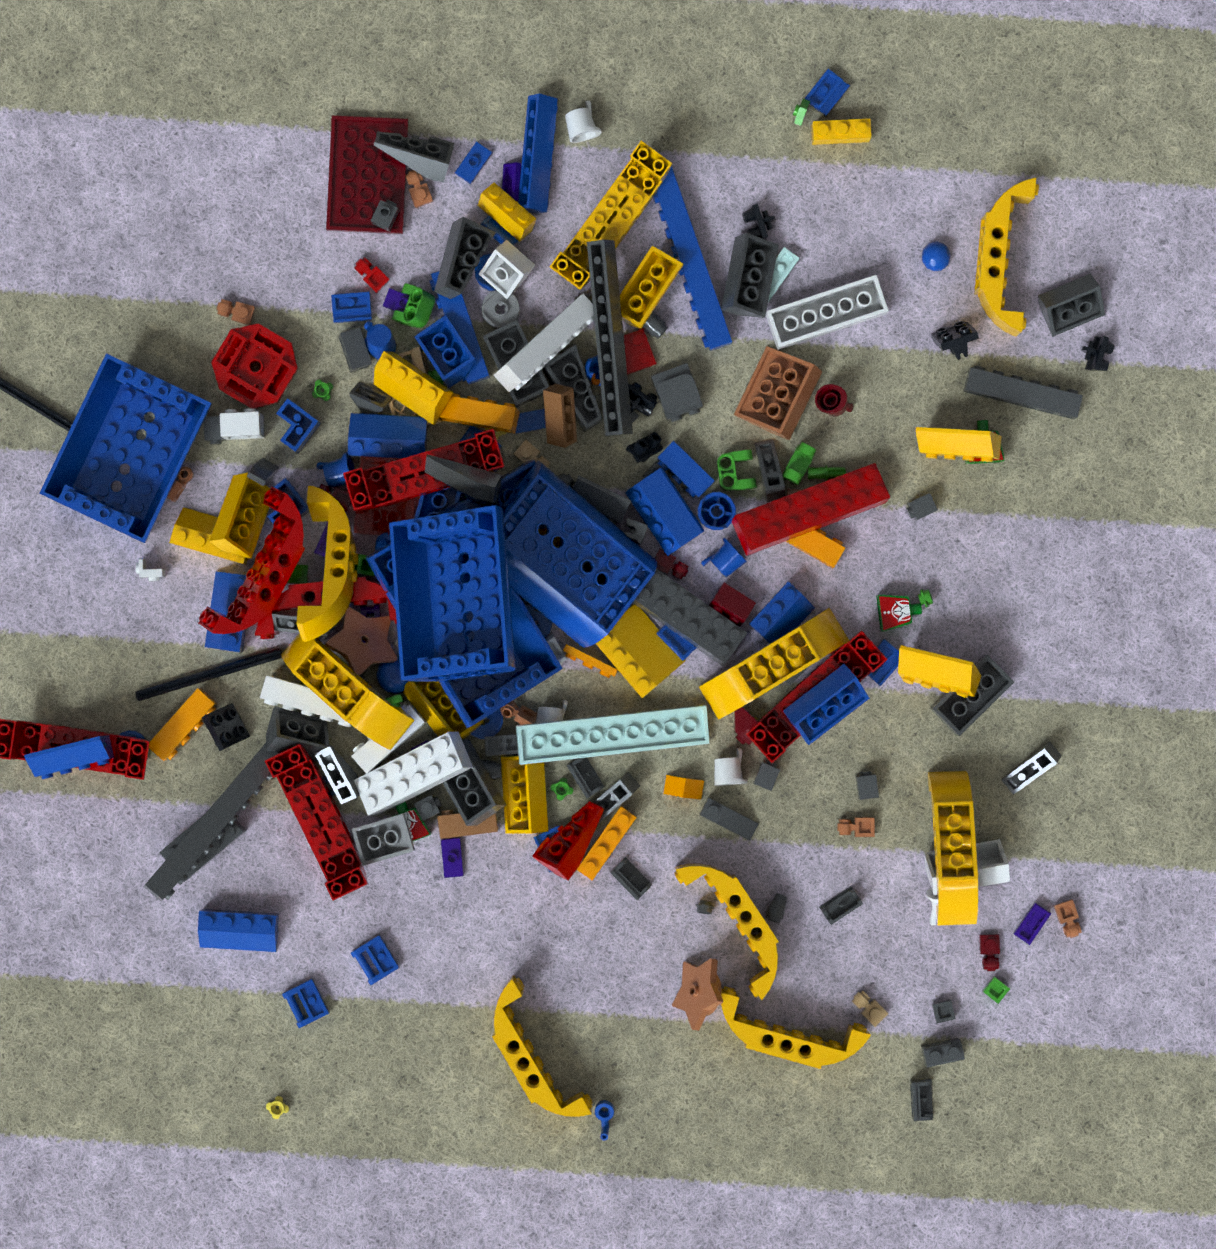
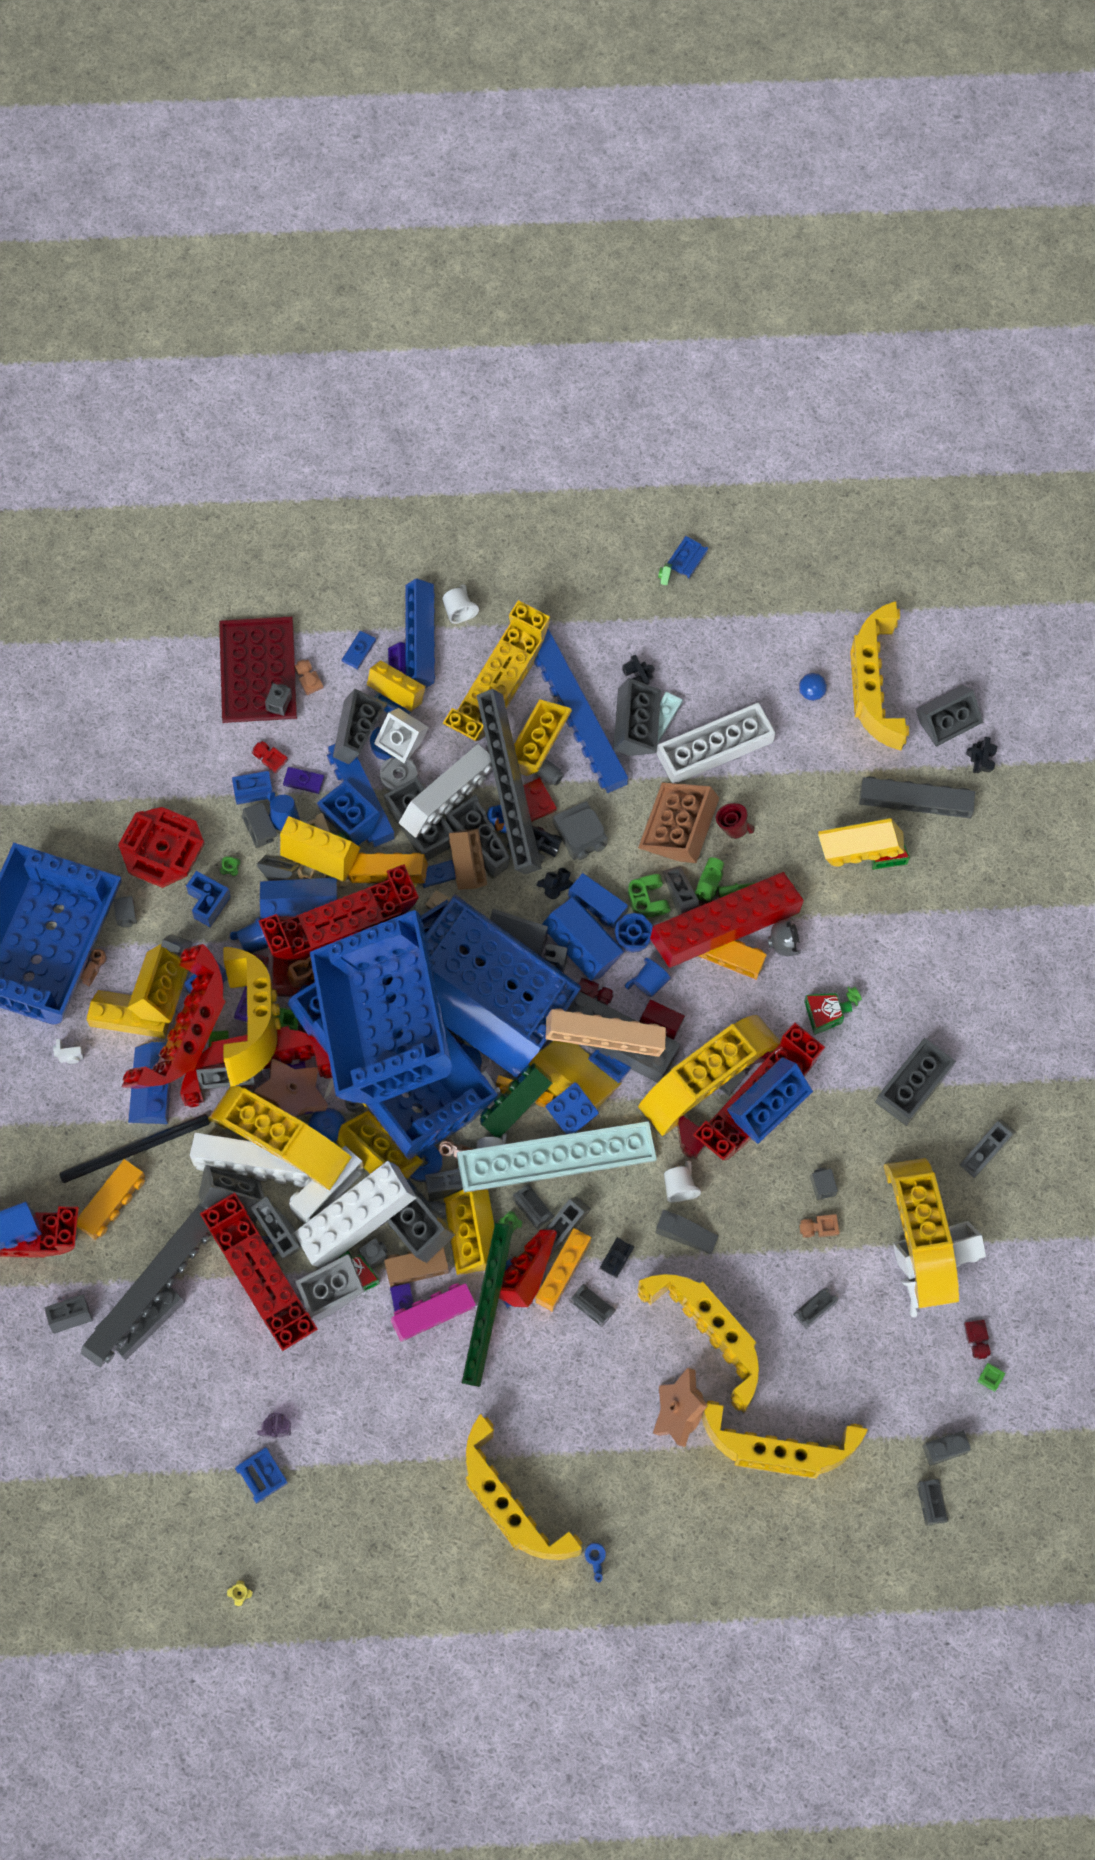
camera: 15 degrees left, 20 degrees down
(135, 832) = (68, 1314): none -> dark grey hinge
(225, 726) = (155, 1195): black plate -> none
(238, 930) = (183, 1405): blue slope -> none
(241, 313) = (142, 803): nougat plate -> none
(241, 424) = (152, 902): white brick -> none
(321, 960) = (275, 1426): none -> clear purple piece
(379, 955) = (337, 1416): blue plate -> none
(380, 523) = (300, 973): none -> reddish brown brick
(417, 308) = (317, 779): bright green piece -> none
(424, 156) = (315, 647): dark grey wedge -> none
(470, 481) = (372, 911): dark grey wedge -> none
(479, 870) = (432, 1312): none -> dark pink brick
(530, 871) = (487, 1304): none -> dark green tile
(579, 674) = (516, 1100): none -> dark green brick
(633, 689) = (572, 1109): none -> blue bracket
(659, 837) = (616, 1257): none -> black hips
(673, 622) = (605, 1032): none -> light nougat brick
(683, 787) = (636, 1206): light orange slope -> none
(704, 907) = (674, 1326): dark grey plate -> none
(766, 775) = (719, 1184): dark grey brick -> none
(776, 909) = (749, 1318): dark grey cone -> none
(782, 613) = (710, 1021): blue slope -> none
(841, 131) = (705, 587): yellow brick -> none
(866, 531) = (784, 938): none -> dark grey cylinder
(873, 1012) = (866, 1415): tan plate -> none
(886, 669) = (824, 1064): blue plate -> none
(921, 507) = (836, 911): dark grey brick -> none
(938, 671) = (878, 1056): yellow slope -> none
(943, 1011) = (940, 1406): dark grey plate -> none
(955, 338) = (844, 755): black plate -> none
(1032, 923) = (1016, 1304): dark purple plate -> none
(1066, 913) = (1050, 1290): nougat plate -> none

